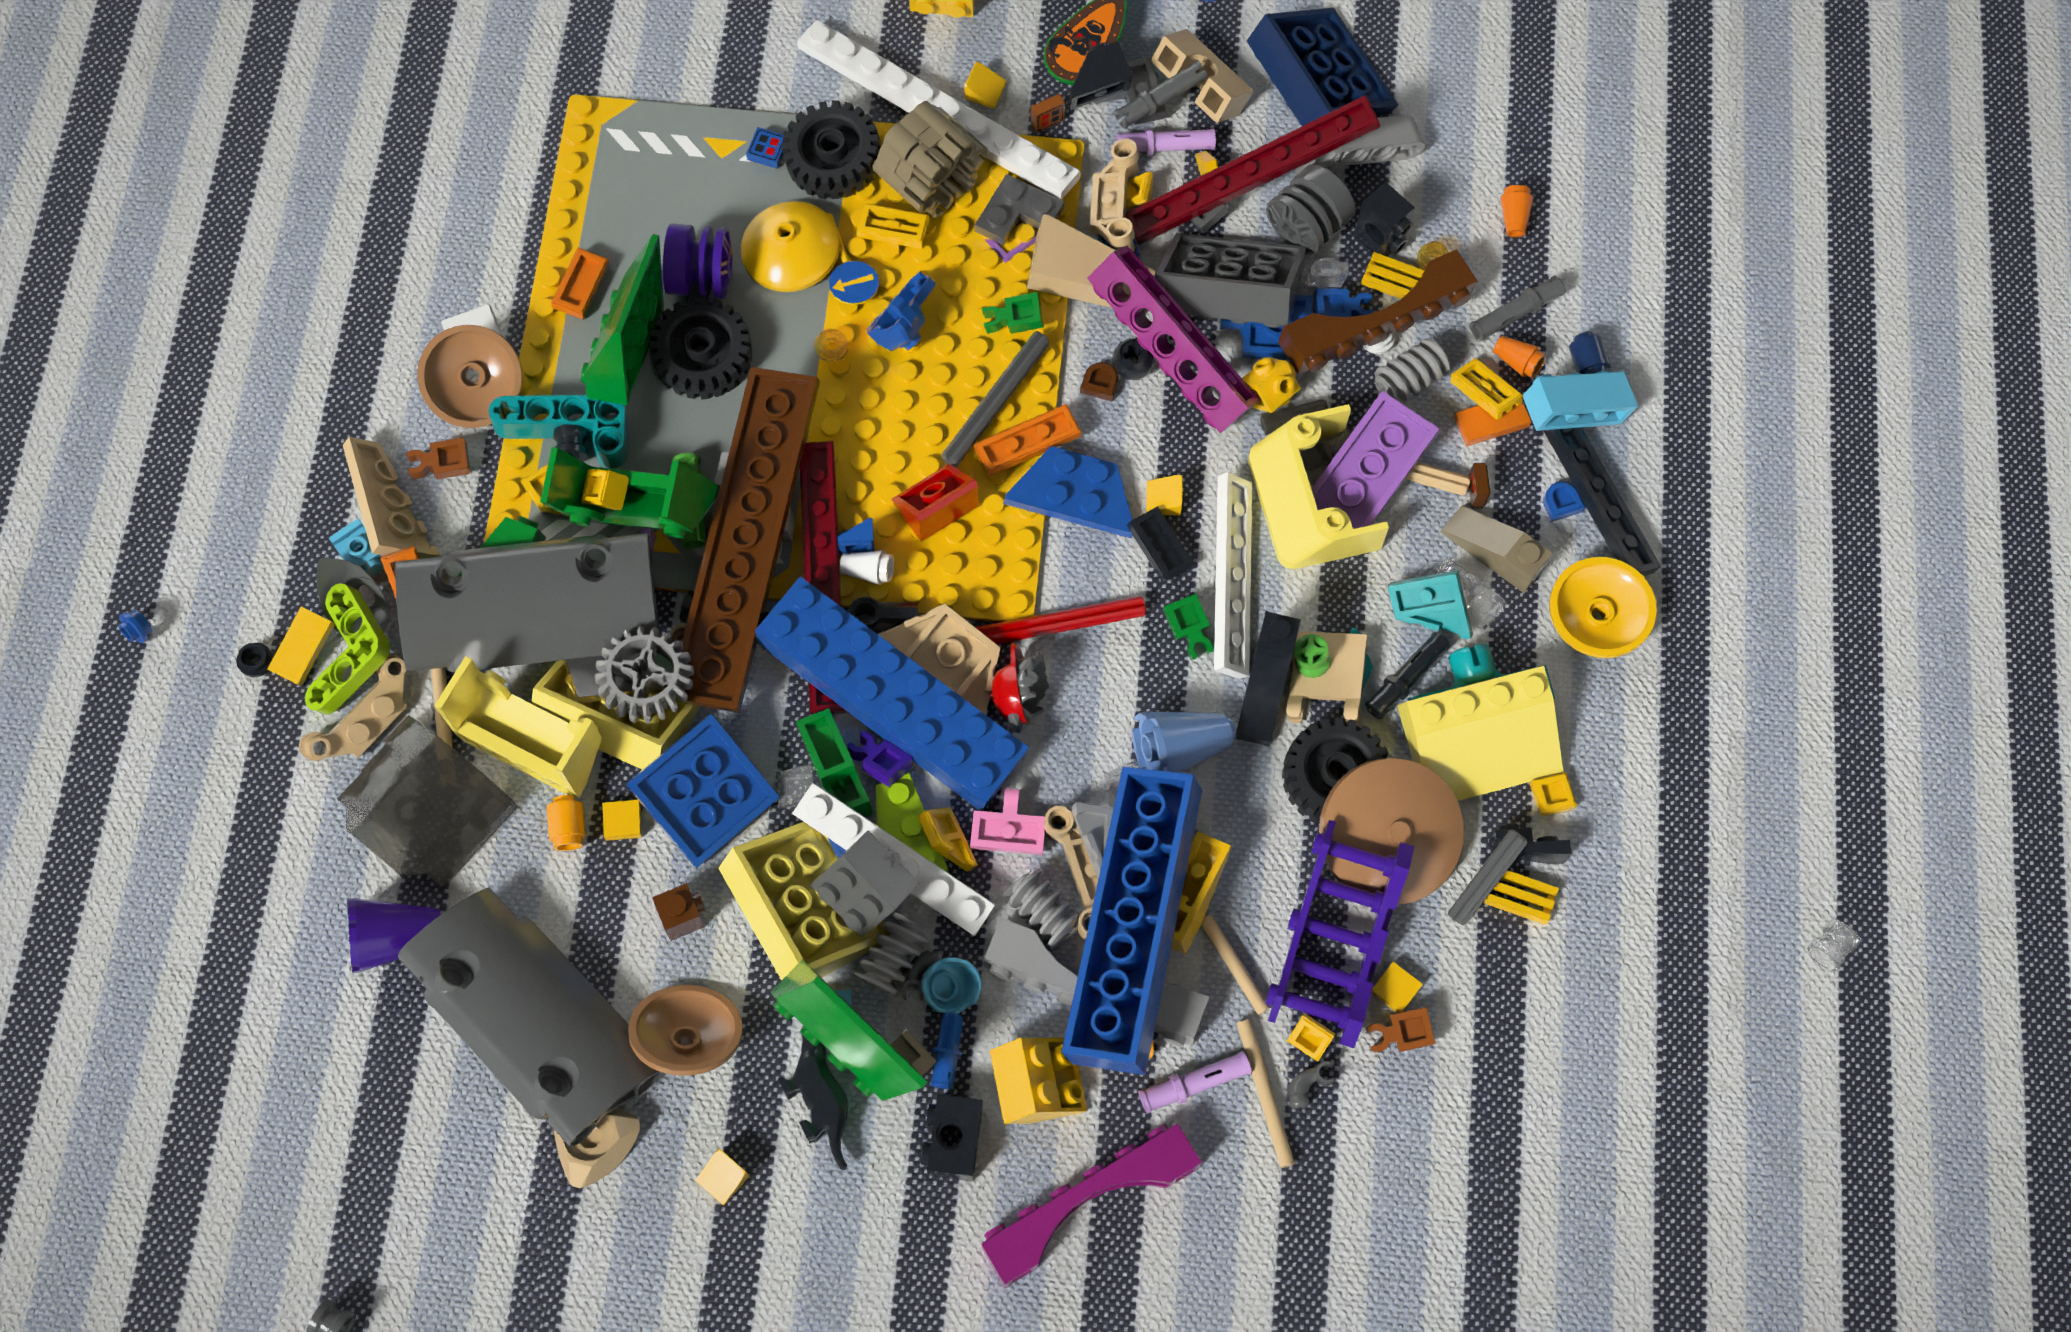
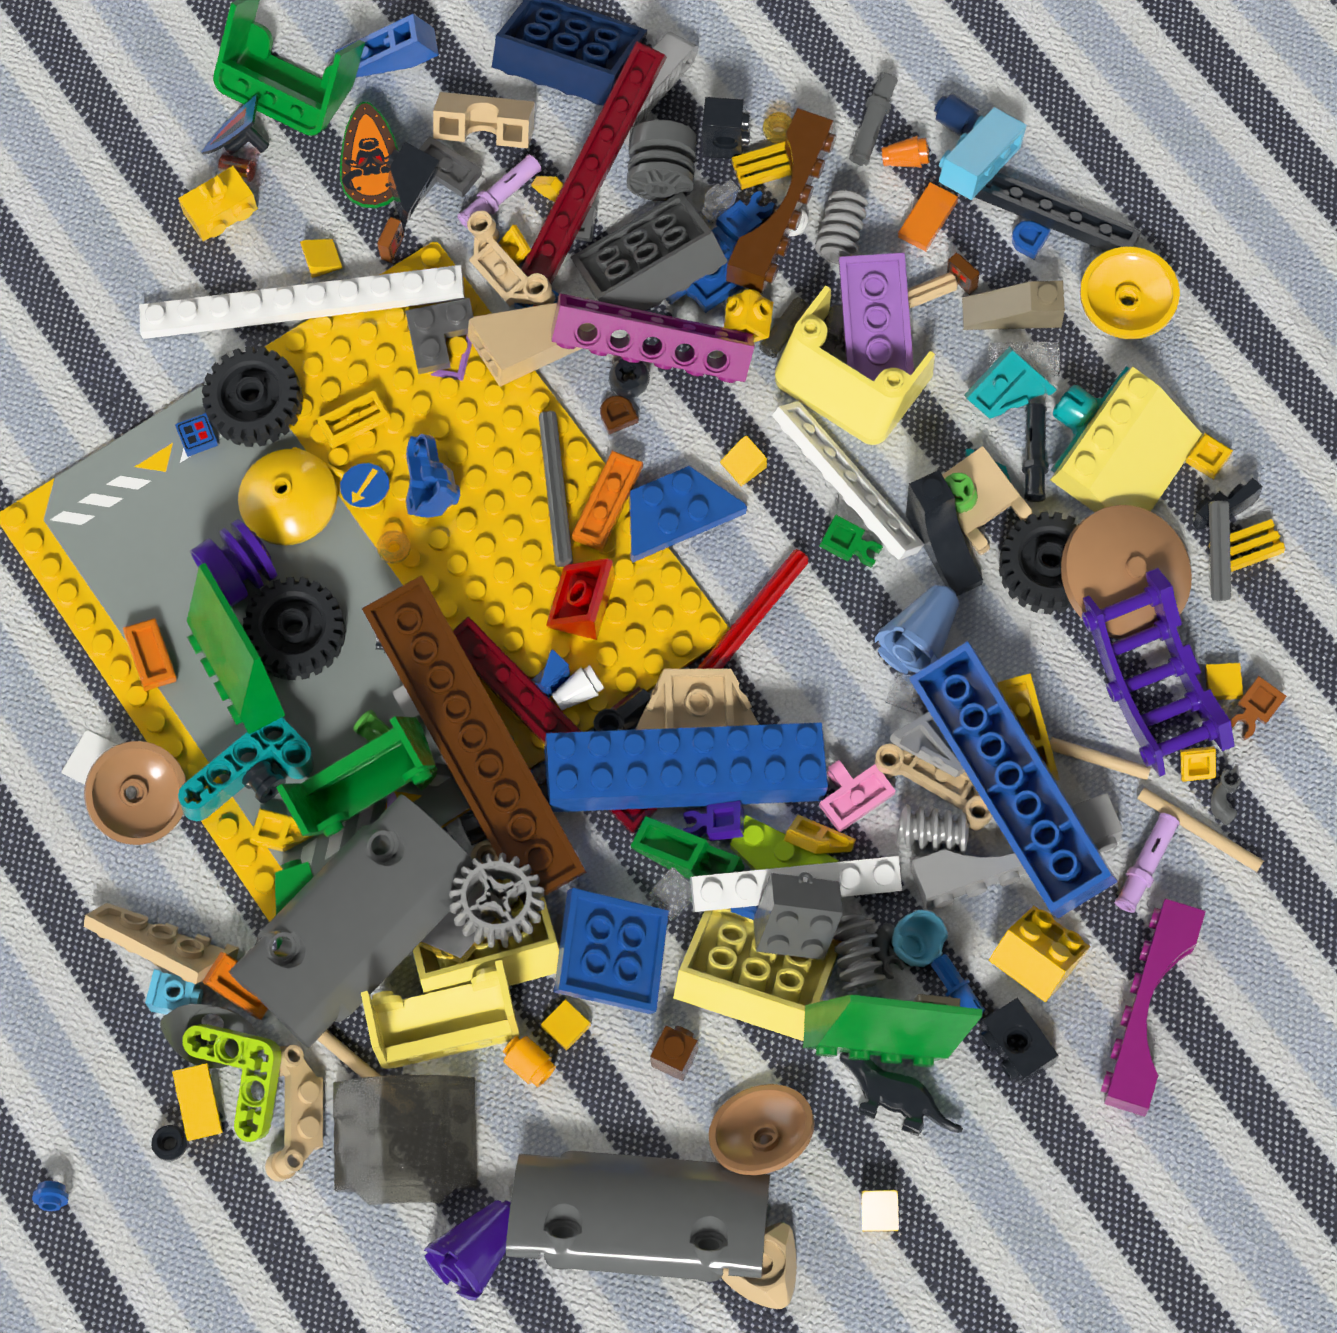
camera: 35 degrees left, 0 degrees up
(446, 459) = (171, 872): dark orange plate -> none
(604, 489) = (330, 791): yellow slope -> none
(924, 155) = (342, 343): dark tan piece -> none
(1019, 314) = (515, 409): green plate -> none
(1020, 688) = (771, 688): hair -> none
(1150, 101) = (464, 170): dark grey pin -> none
(1160, 544) = (774, 500): black plate -> none
(1481, 390) = (903, 201): yellow tile -> none
(1516, 209) = (806, 43): orange cone -> none

